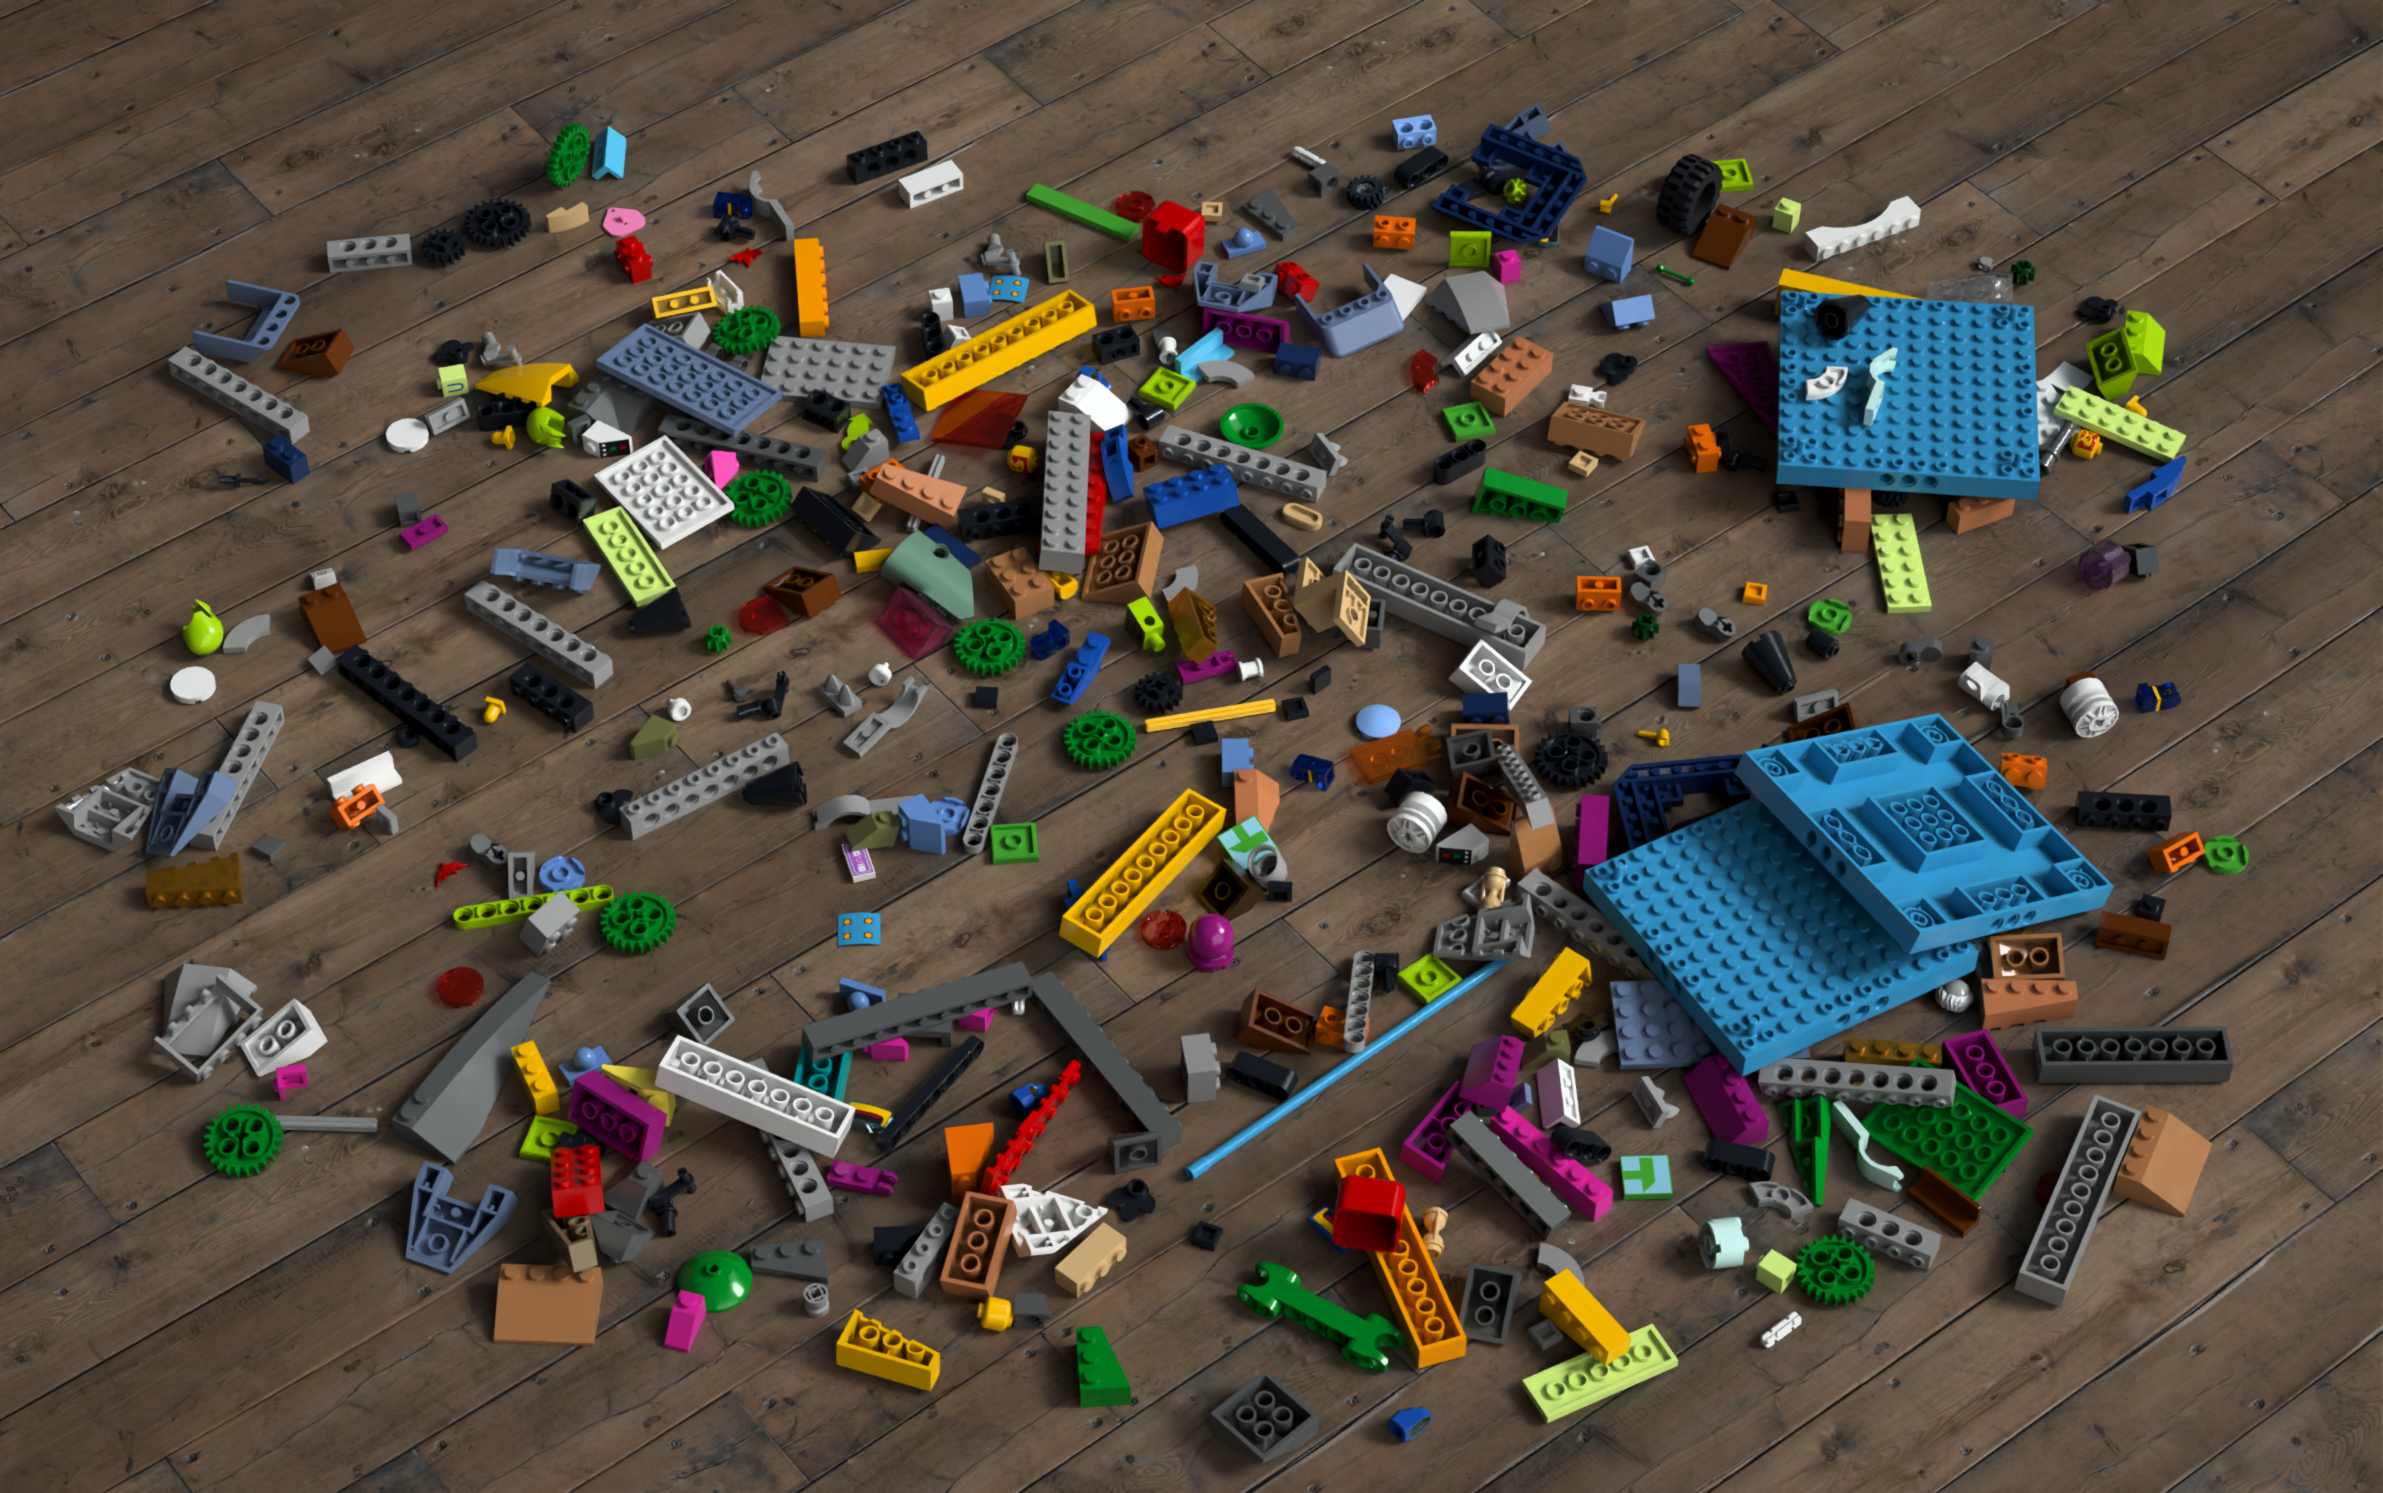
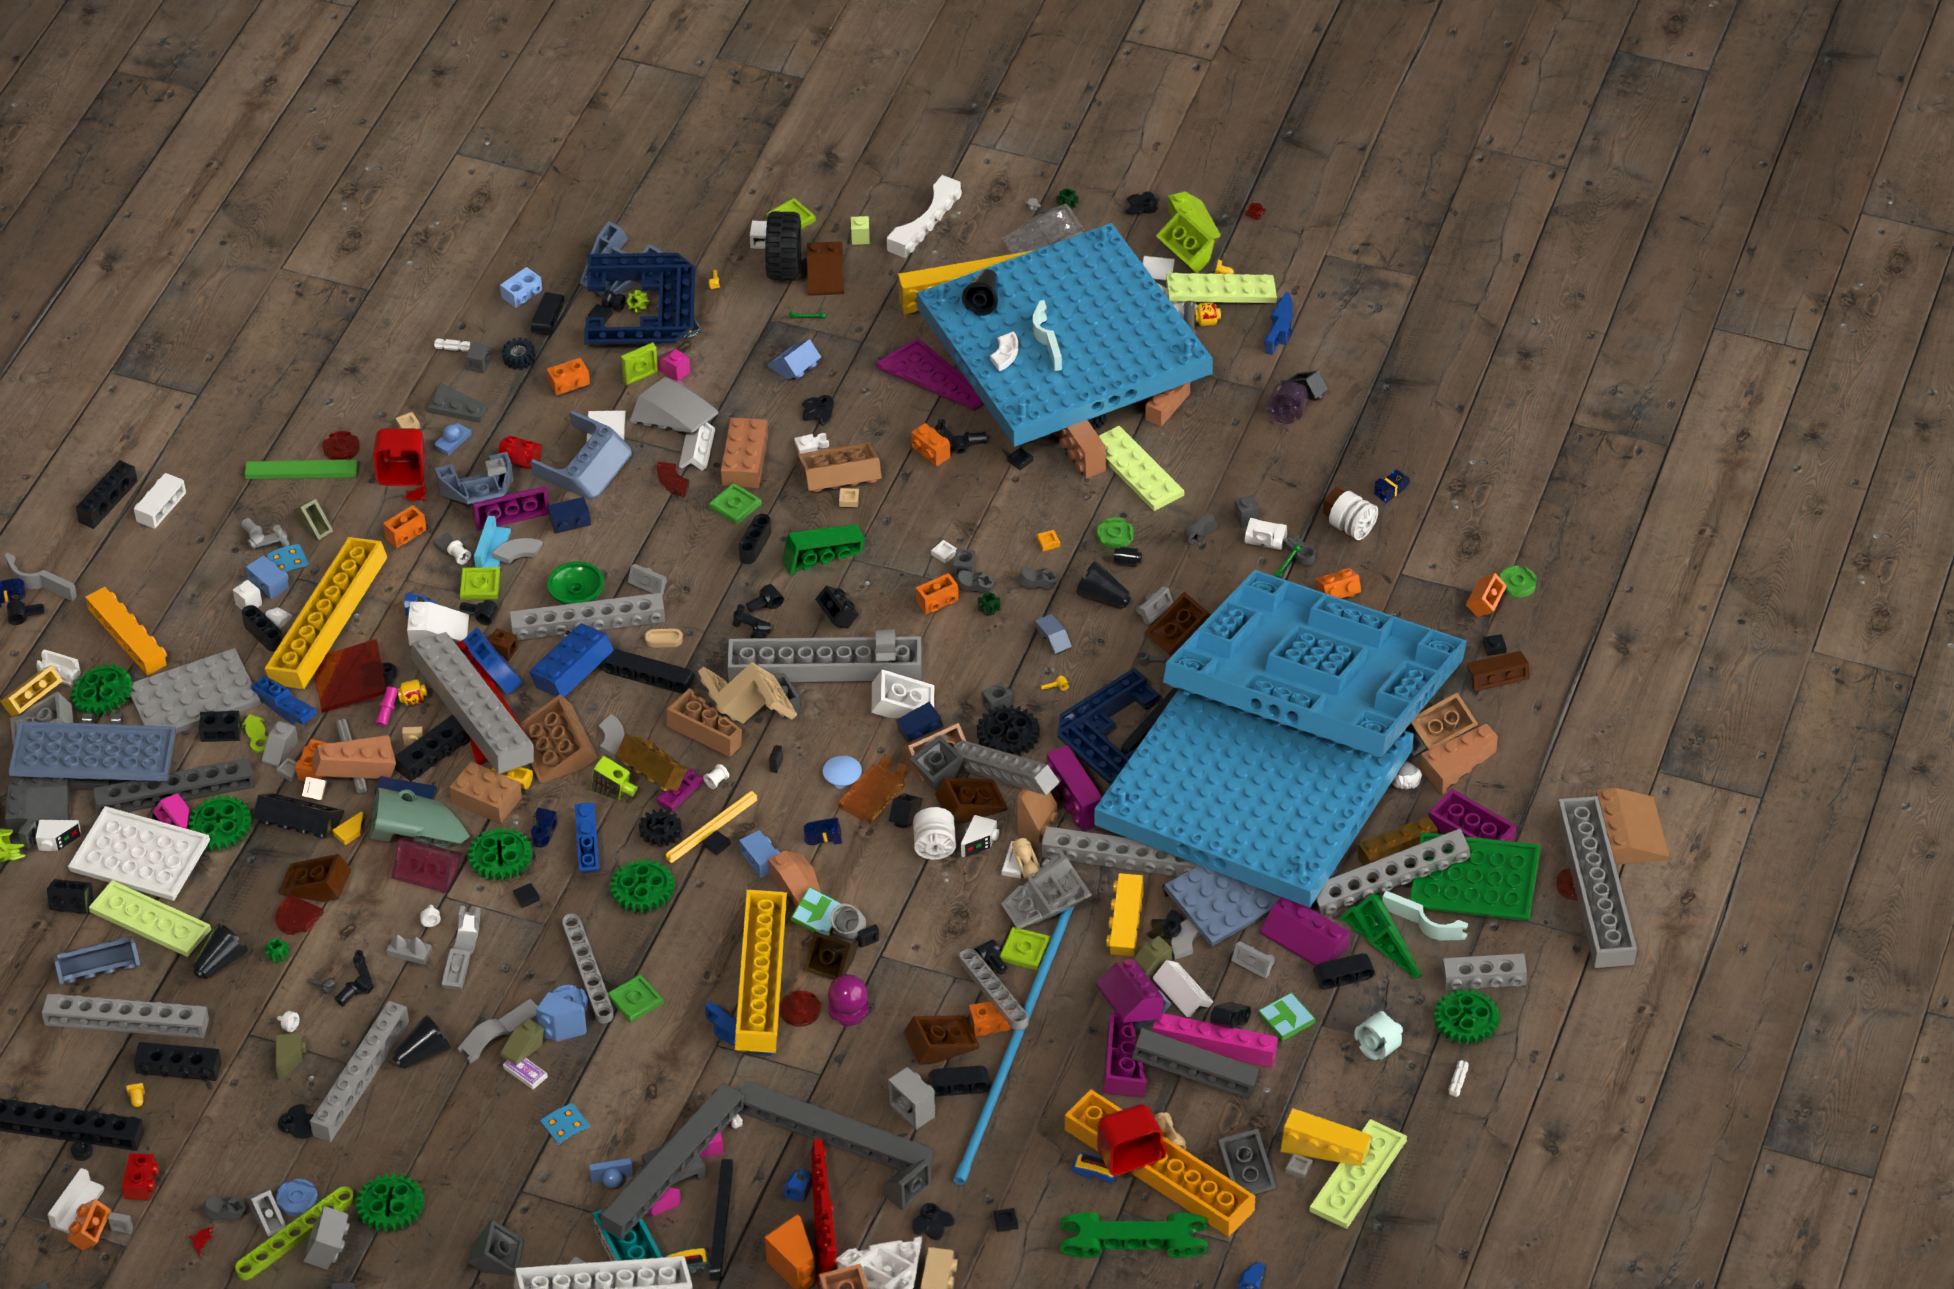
camera: 30 degrees left, 0 degrees up
(434, 785) = (140, 1176): none -> red brick
(746, 256) = (50, 628): red piece -> none
(989, 461) = (386, 706): none -> dark pink pin
(1115, 344) = (414, 566): black brick -> none
(1295, 708) = (771, 791): black tile -> none
(1557, 1260) = (1270, 1110): light grey tile -> none
(1609, 254) = (750, 321): medium blue slope -> none
(1775, 1271) = (1426, 1038): yellowish green brick -> none
(1780, 1197) = (1391, 983): light grey tile -> none
(1945, 1202) = (1506, 928): reddish brown panel -> none
(1972, 731) = (1278, 573): none -> green hinge
(2123, 811) = (1427, 582): black brick -> none
(2132, 1054) = (1559, 759): dark grey brick -> none
(2214, 365) = (1255, 211): none -> clear red plate

